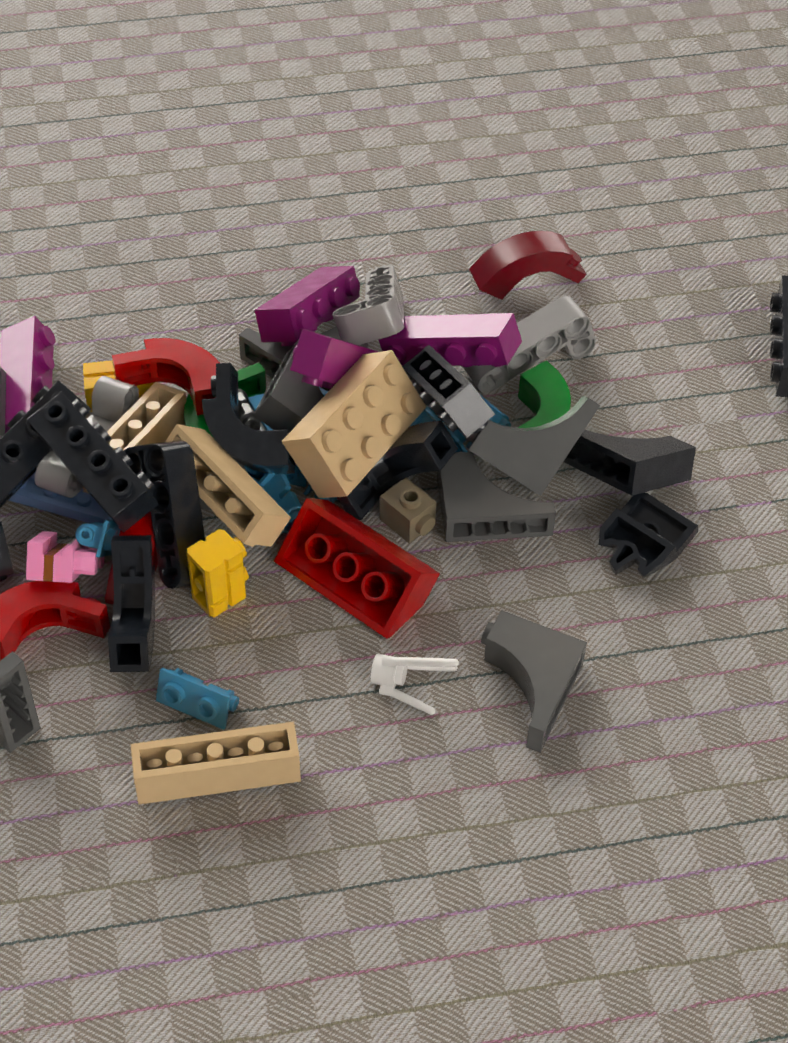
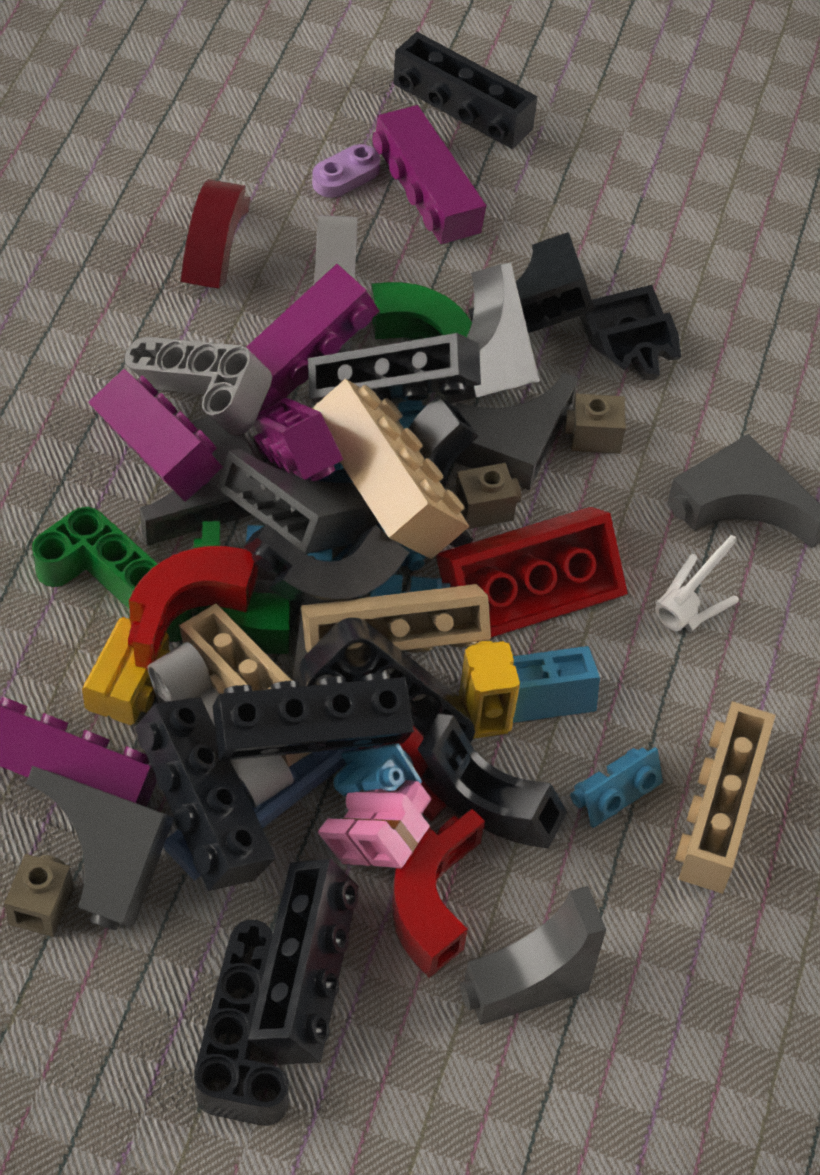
camera: 65 degrees left, 5 degrees up
(204, 320) = (95, 552): none -> green beam
(257, 615) = (556, 684): none -> dark azure hinge
(531, 550) = (596, 423): none -> dark tan brick
(662, 314) = (345, 171): none -> lavender plate
(689, 352) = (429, 174): none -> magenta brick

